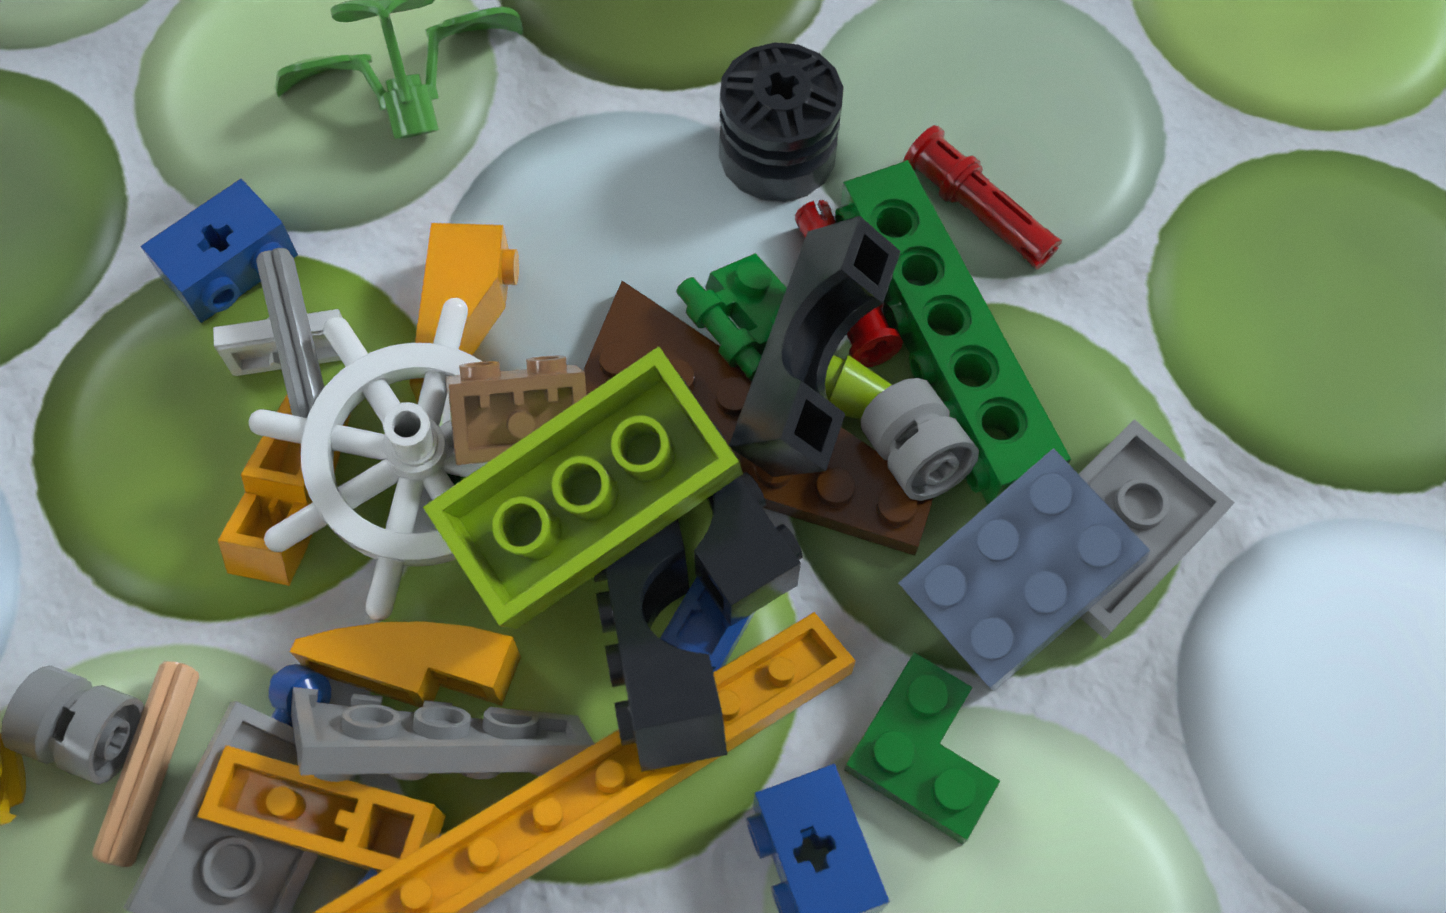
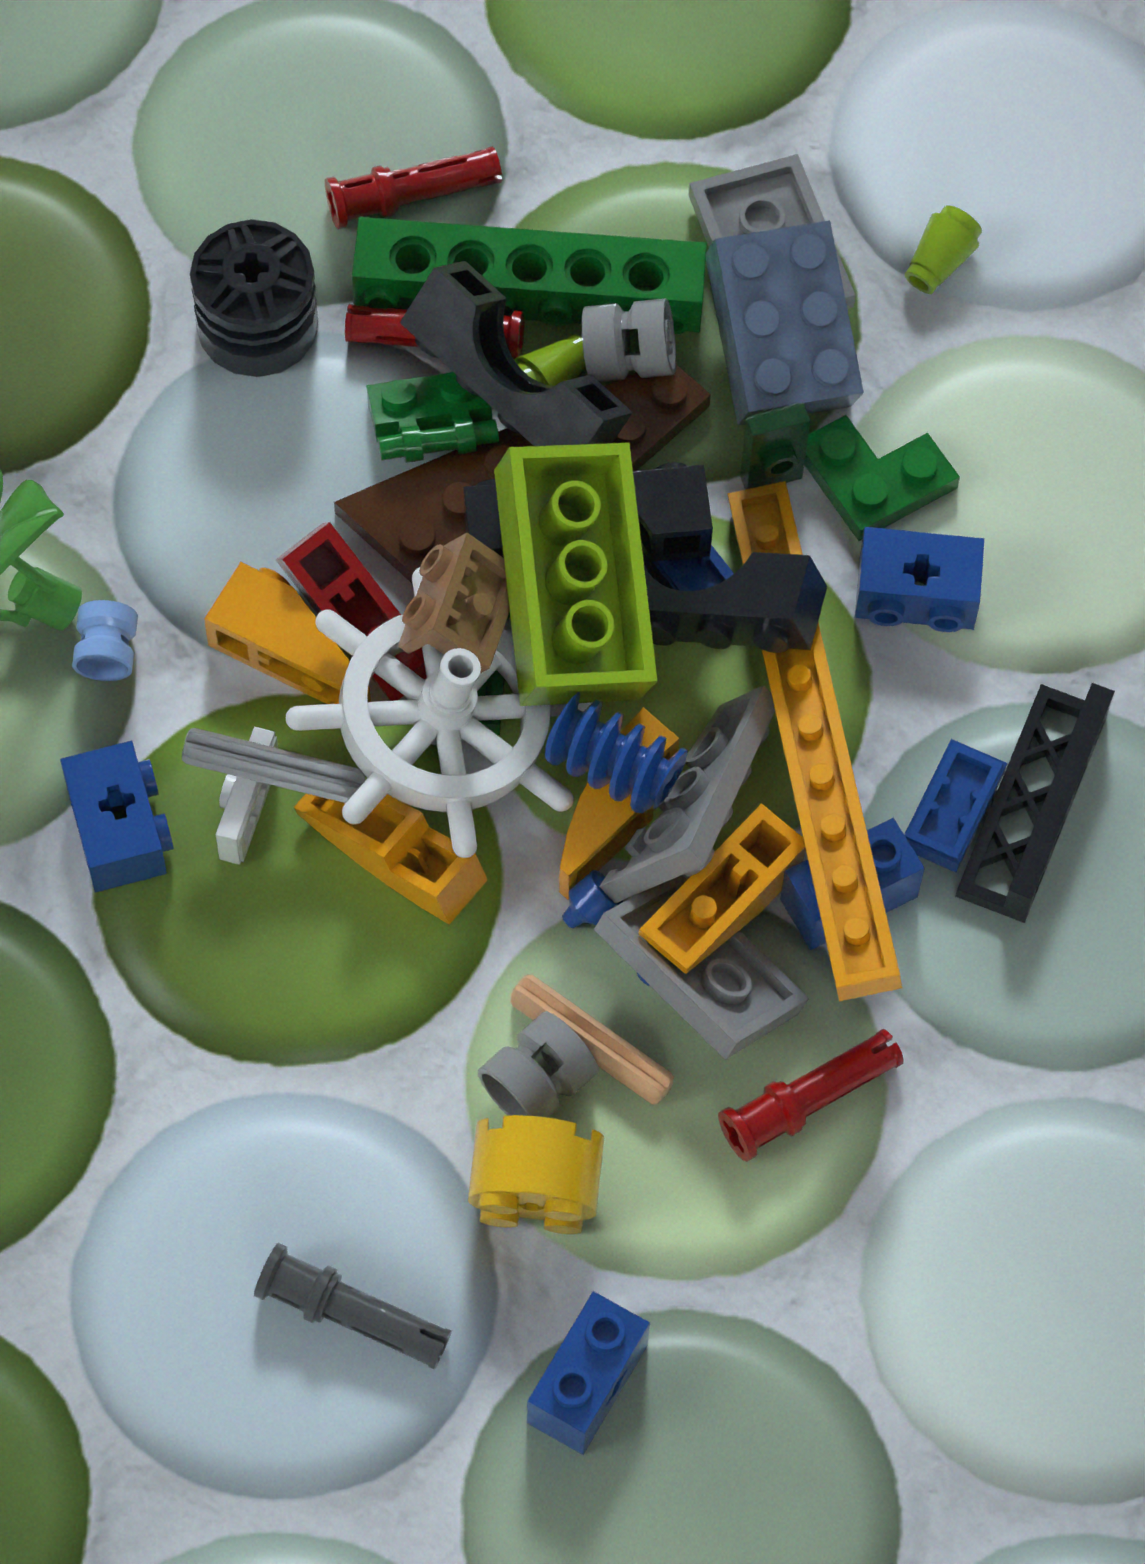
camera: 65 degrees left, 0 degrees up
(392, 169) = (105, 640): none -> light blue wheel
(413, 627) = (613, 756): none -> blue piece
(526, 310) = (337, 581): none -> red slope
(876, 626) = (775, 446): none -> dark green plate
(1226, 696) = (943, 248): none -> lime cone

